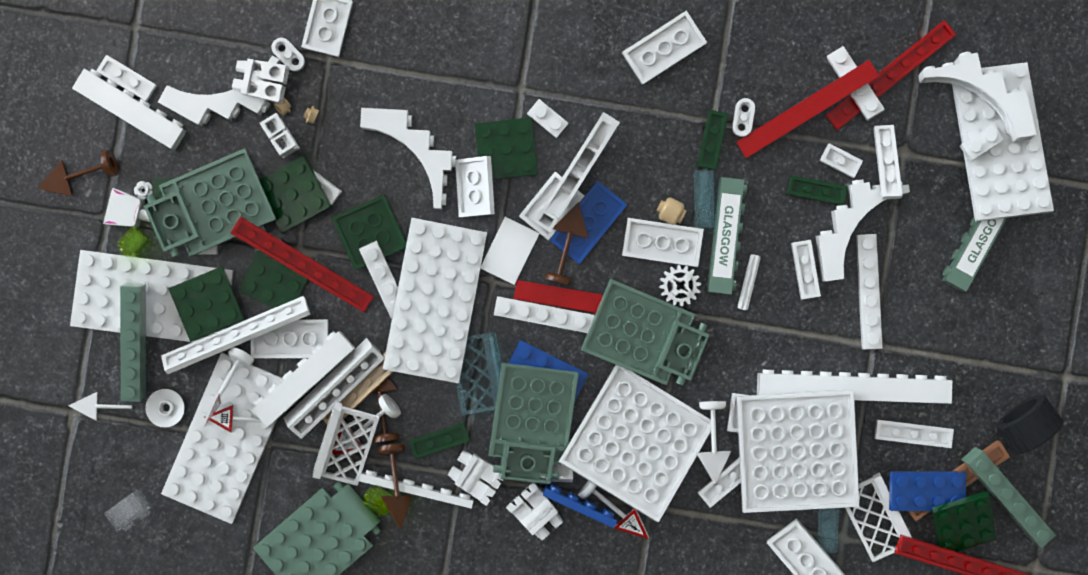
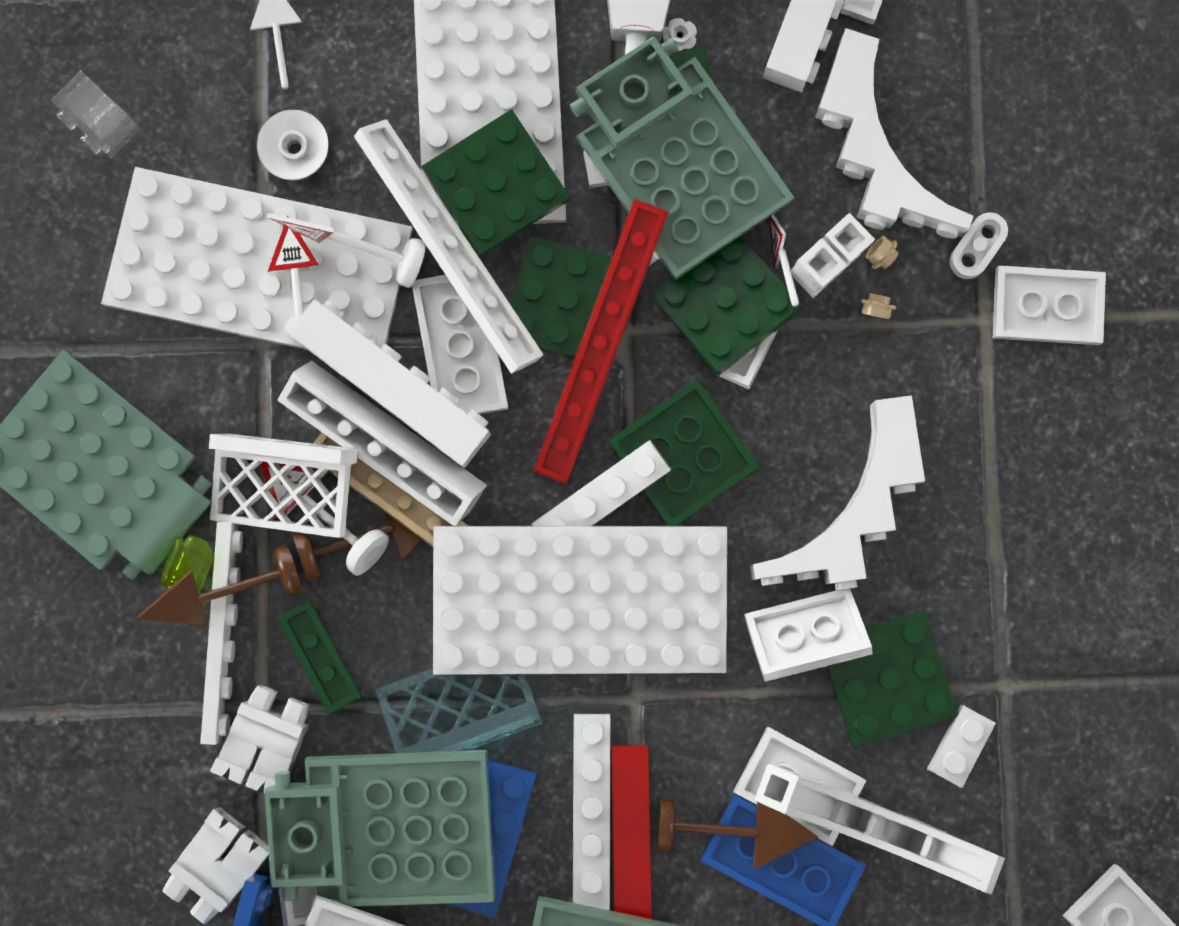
camera: 75 degrees right, 5 degrees down
(132, 242) = (583, 32): clear neon green brick -> none
(133, 341) = (402, 64): sand green brick -> none
(255, 80) = (926, 205): white hips -> none
(275, 160) = (778, 238): none -> white piece
(509, 250) = (700, 722): white tile -> none

